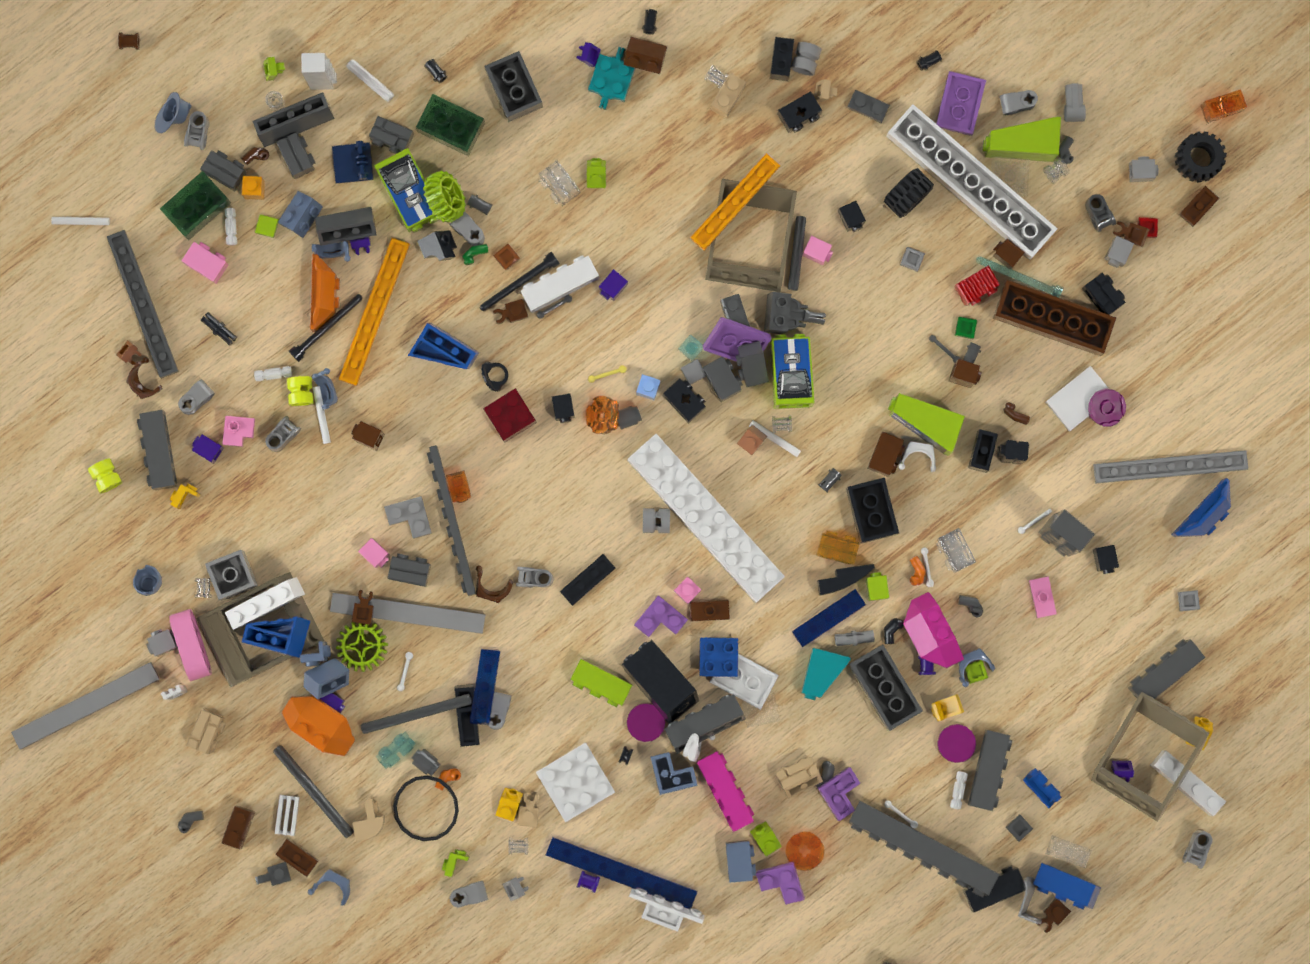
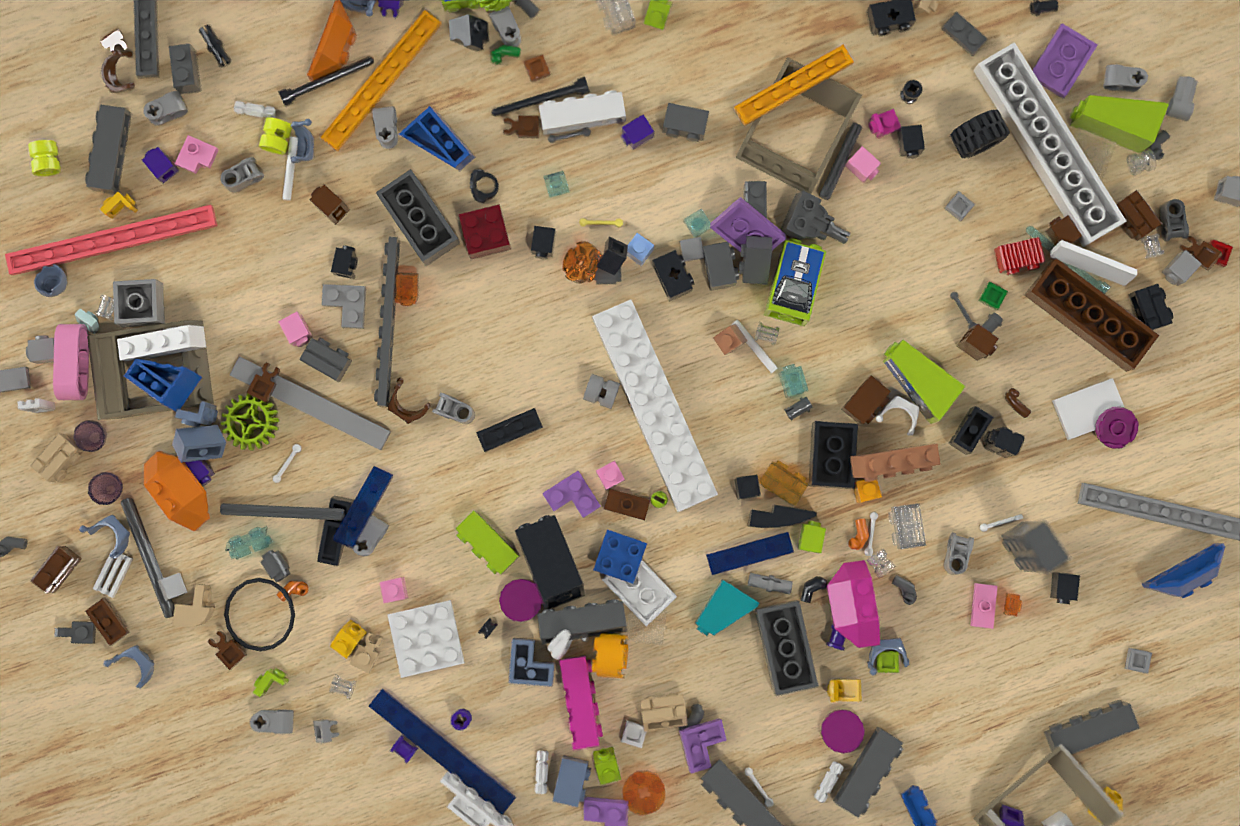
camera: 20 degrees right, 0 degrees up
(187, 528) = (111, 240): none -> coral plate
(191, 603) = (88, 319): none -> light aqua plate
(200, 357) = (184, 68): none -> dark grey brick
(228, 703) = (90, 435): none -> hair
(257, 743) = (105, 488): none -> hair
(283, 776) = (122, 535): none -> sand blue helmet
(343, 809) = (172, 586): none -> light grey tile
(391, 348) = (386, 123): none -> light grey piece
(397, 481) = (344, 262): none -> black brick
(411, 849) = (229, 652): none -> reddish brown plate
(448, 422) = (418, 217): none -> dark grey brick
(534, 749) = (394, 590): none -> bright pink brick
(557, 353) = (556, 184): none -> clear light blue plate
(628, 846) = (458, 725): none -> dark purple bush
(629, 401) = (613, 257): none -> black panel
(652, 263) = (685, 122): none -> dark grey brick
(712, 862) = (541, 772): none -> white axle
(736, 601) = (657, 504): none -> lime hinge
(739, 743) = (611, 655): none -> light orange brick
(780, 804) = (633, 734): none -> white tile
(808, 561) = (747, 487): none -> black brick
(817, 457) = (793, 380): none -> clear light blue brick
(824, 208) = (884, 123): none -> dark pink bracket
(839, 167) = (914, 86): none -> black bush
(911, 530) = (867, 490): none -> light orange brick
(924, 499) = (895, 460): none -> nougat brick
(943, 589) = (880, 563): none -> clear wheel
(1006, 558) = (958, 552): none -> light grey piece
(1041, 272) = (1093, 263): none -> white tile
(1066, 219) = (1138, 216): none -> reddish brown brick
(1066, 588) = (1012, 604): none -> clear orange plate
(1088, 240) = (1152, 246): none -> clear bush

